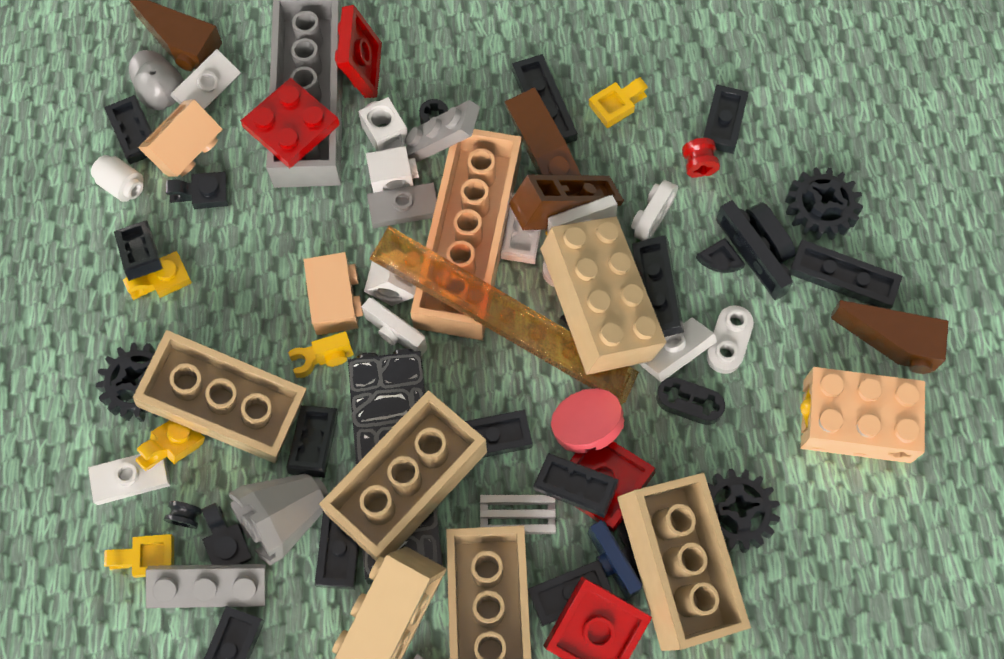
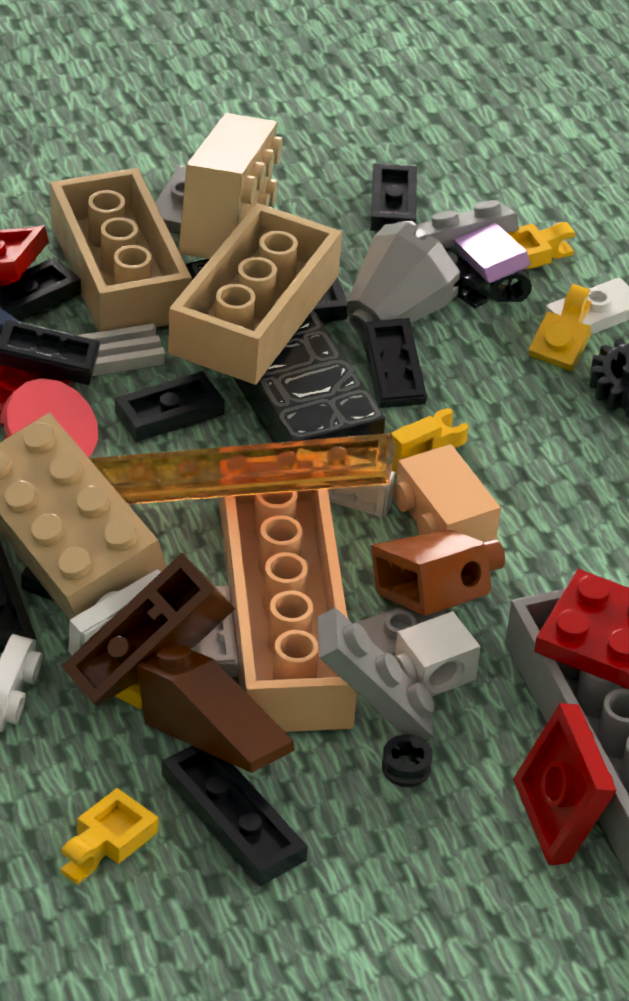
camera: 160 degrees right, 25 degrees down
(188, 526) = (492, 252): none -> tile
(219, 396) = (521, 350): tan brick -> none
(361, 221) = (435, 569): none -> dark orange torso
(383, 113) = (476, 714): white brick -> none
(388, 286) = (366, 518): white brick -> none

